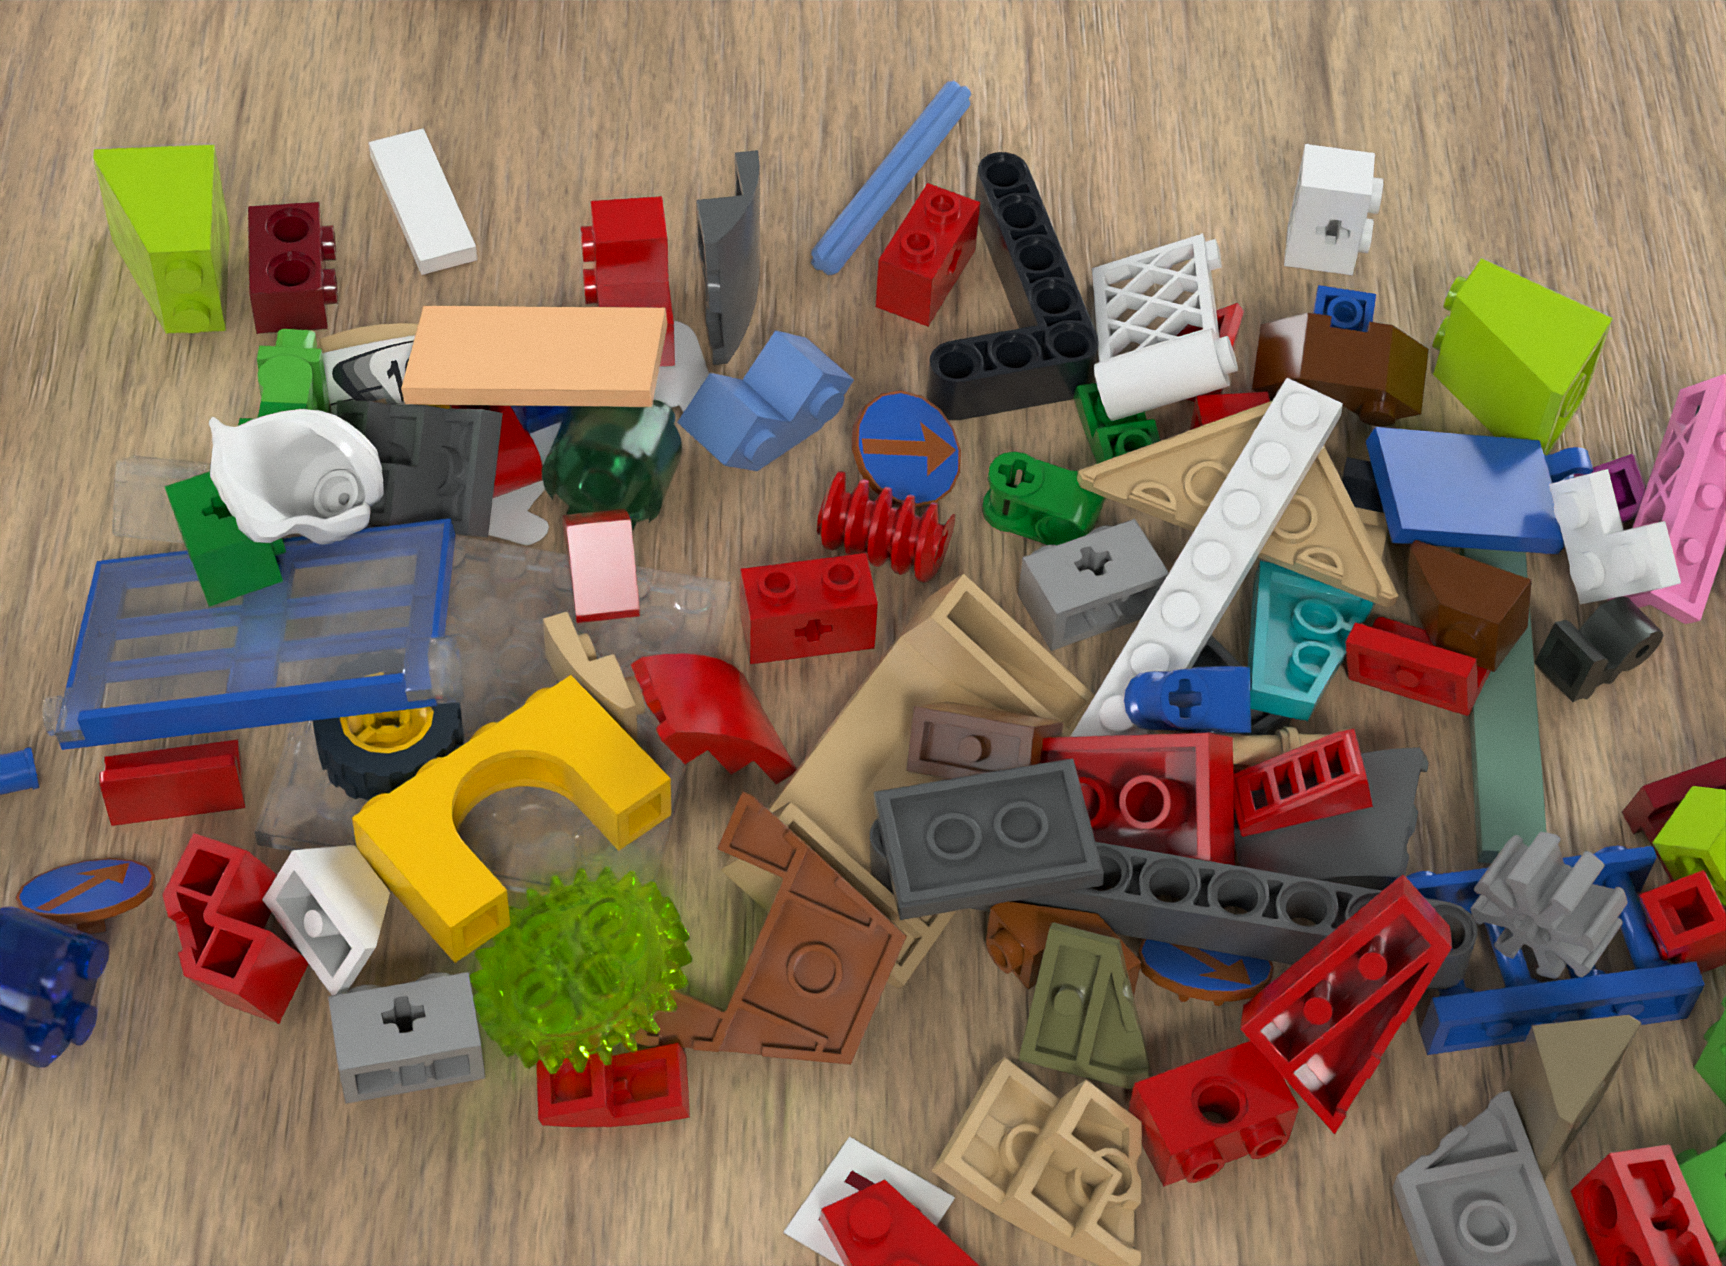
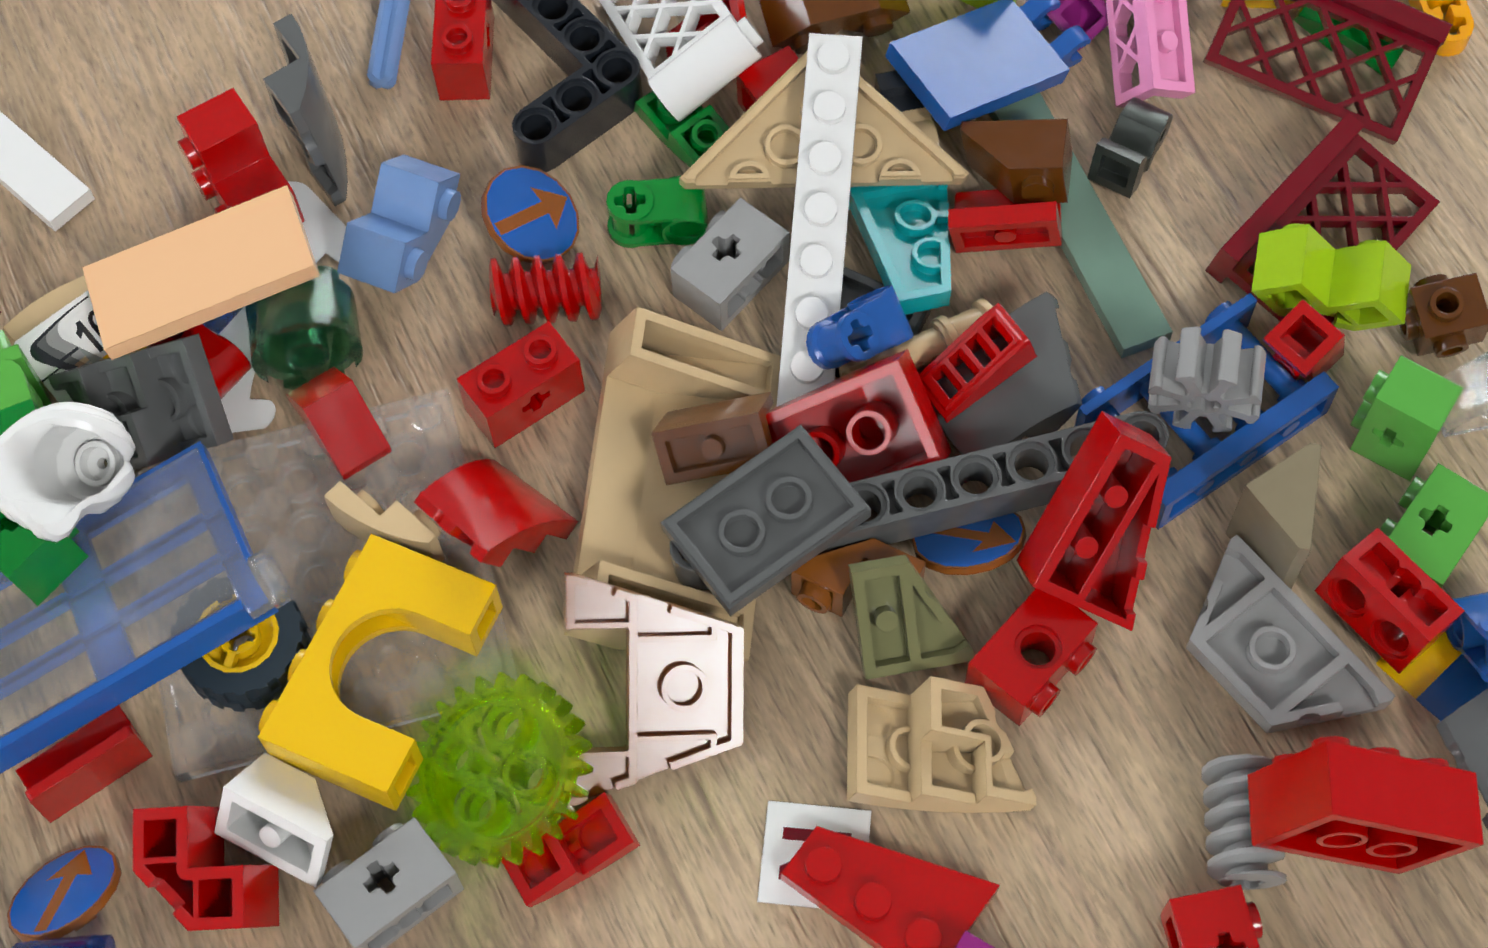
camera: 20 degrees left, 10 degrees up
(1600, 553) = (1102, 72): white plate -> none

